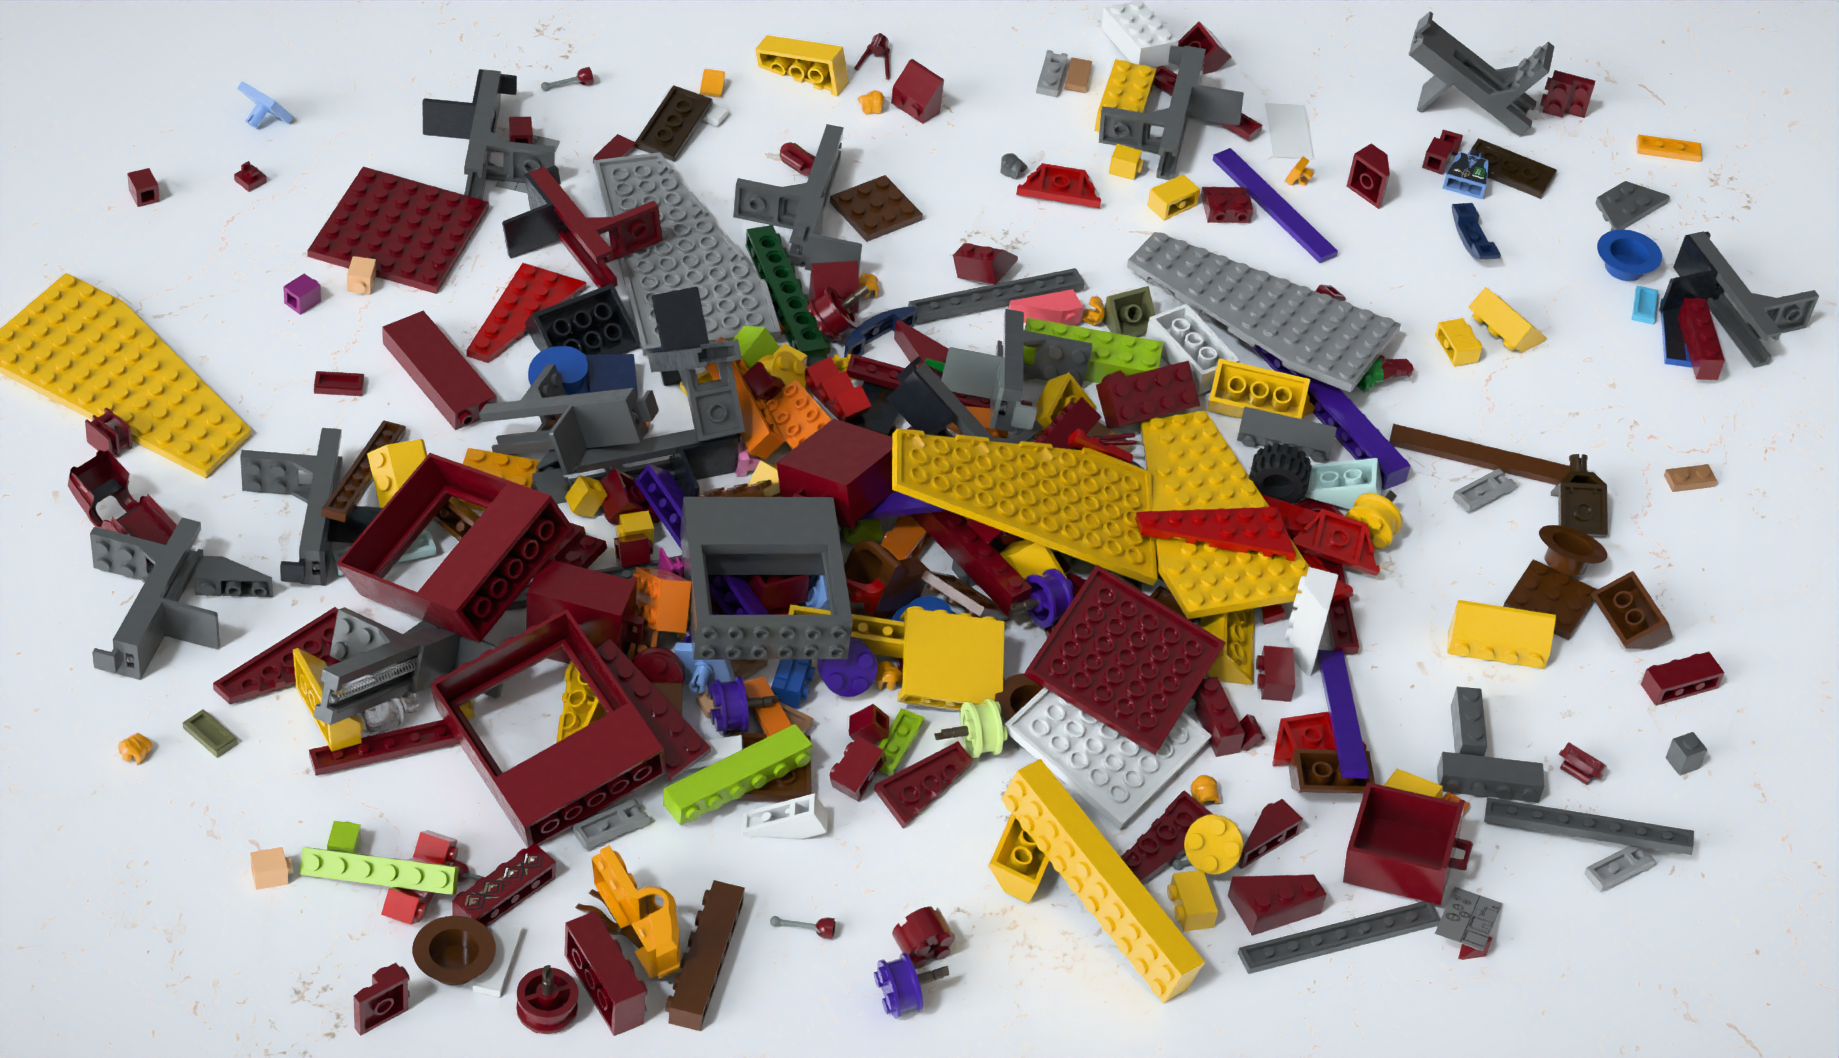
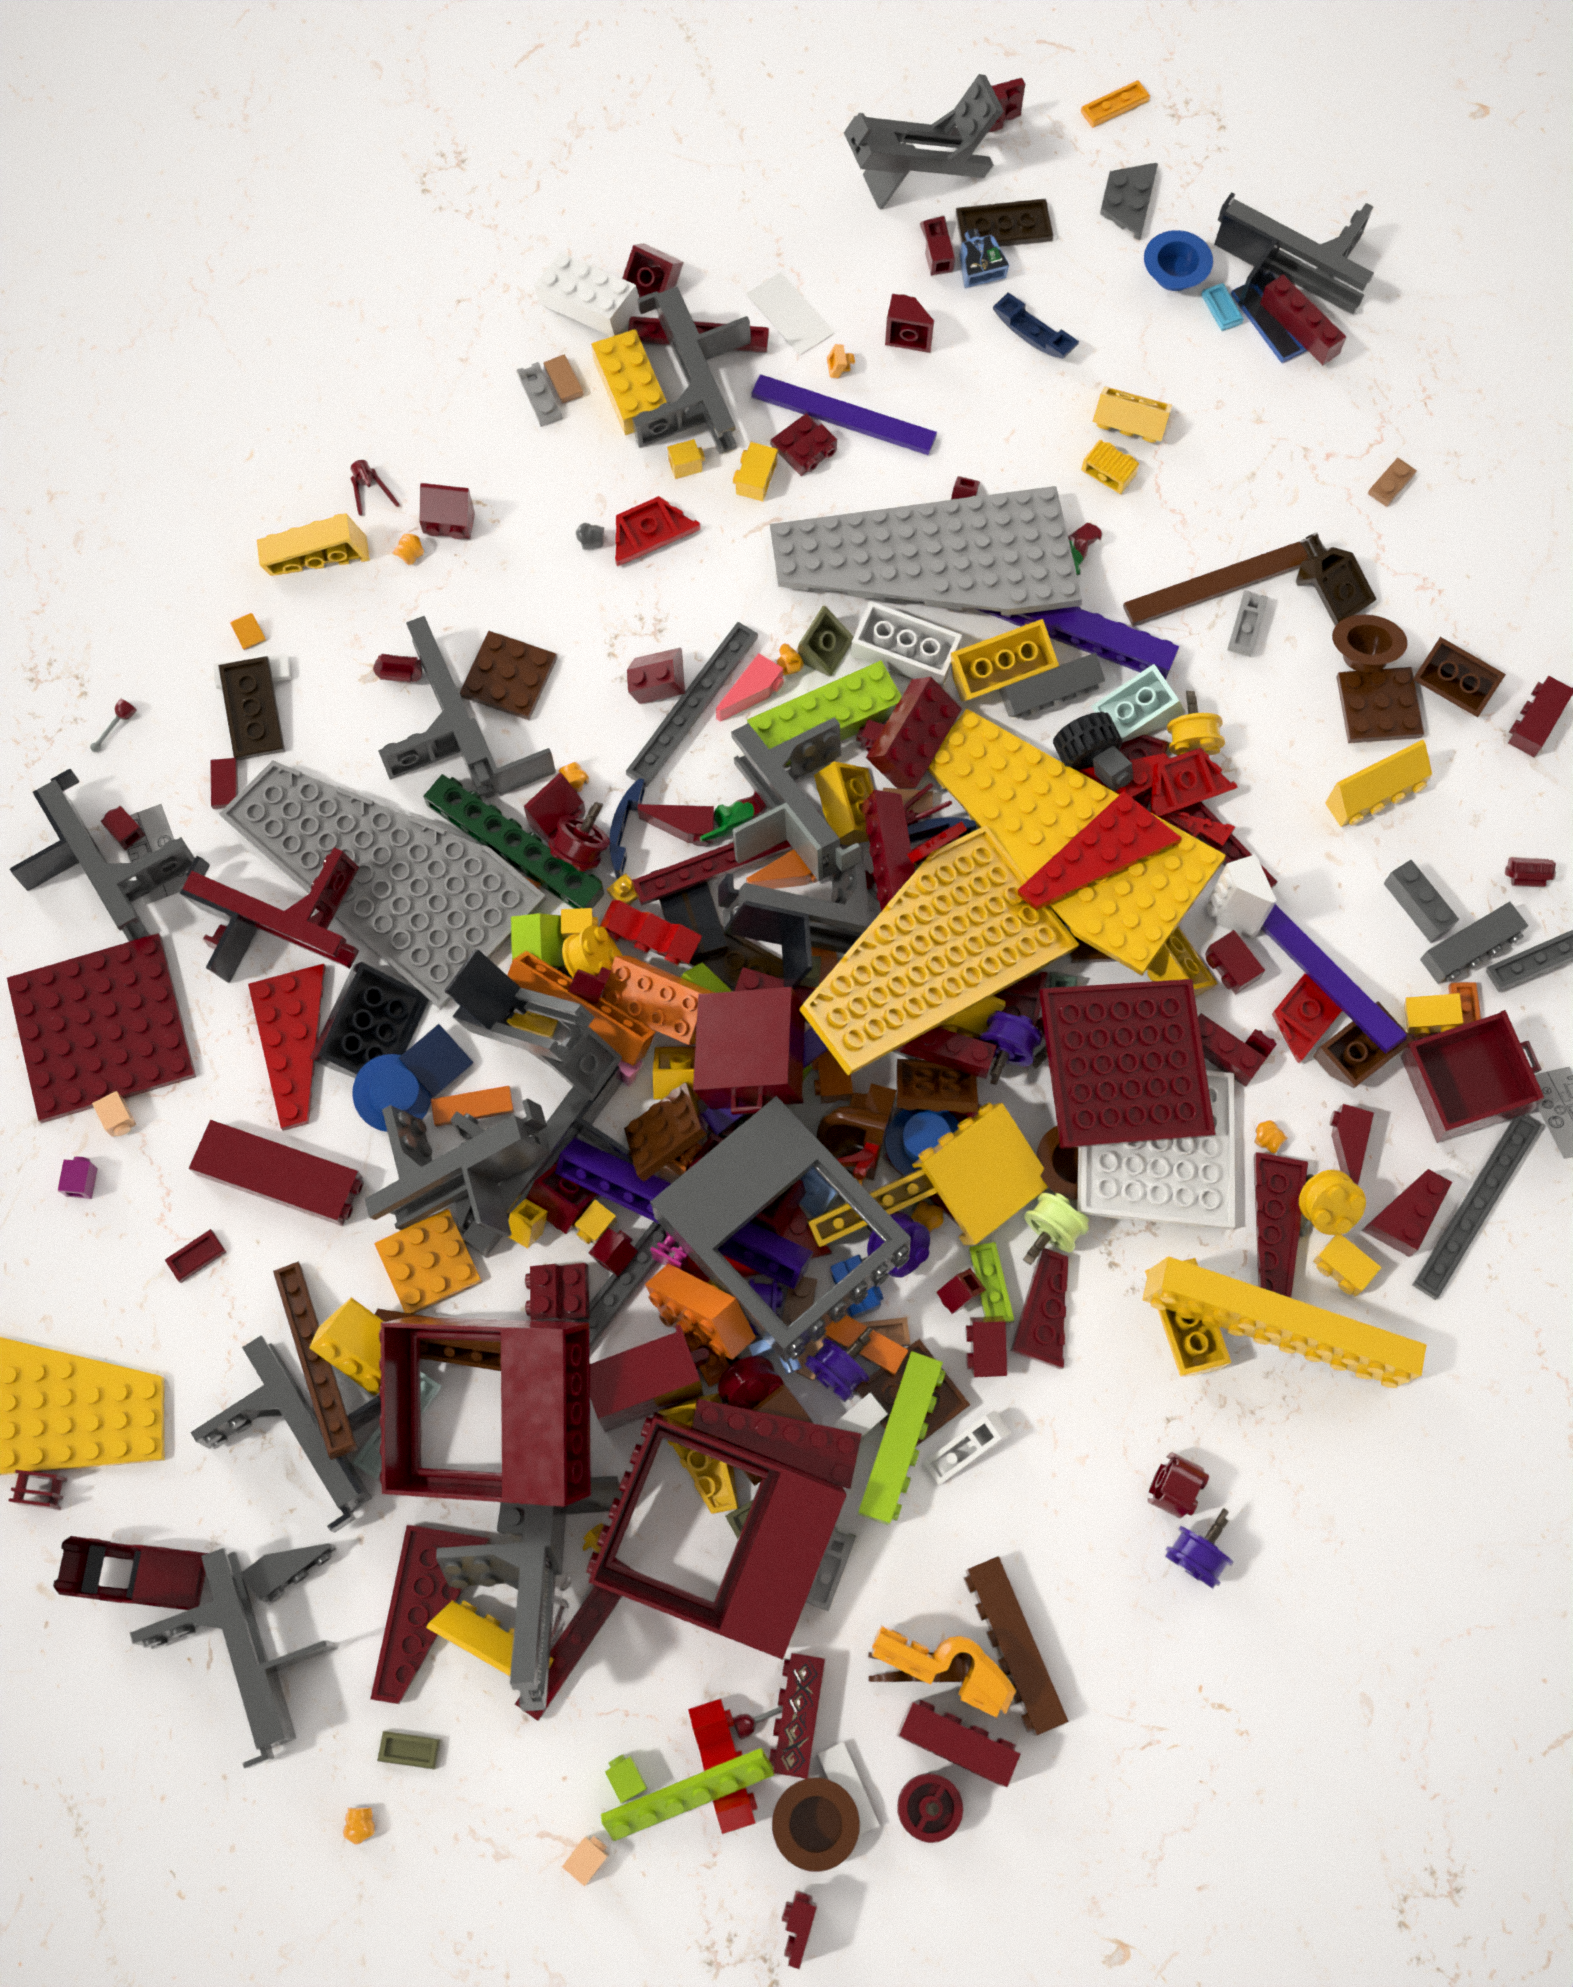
camera: 30 degrees left, 25 degrees up
(824, 927) = (1083, 1534): hinge -> none
(1286, 497) = (1113, 768): none -> dark grey brick

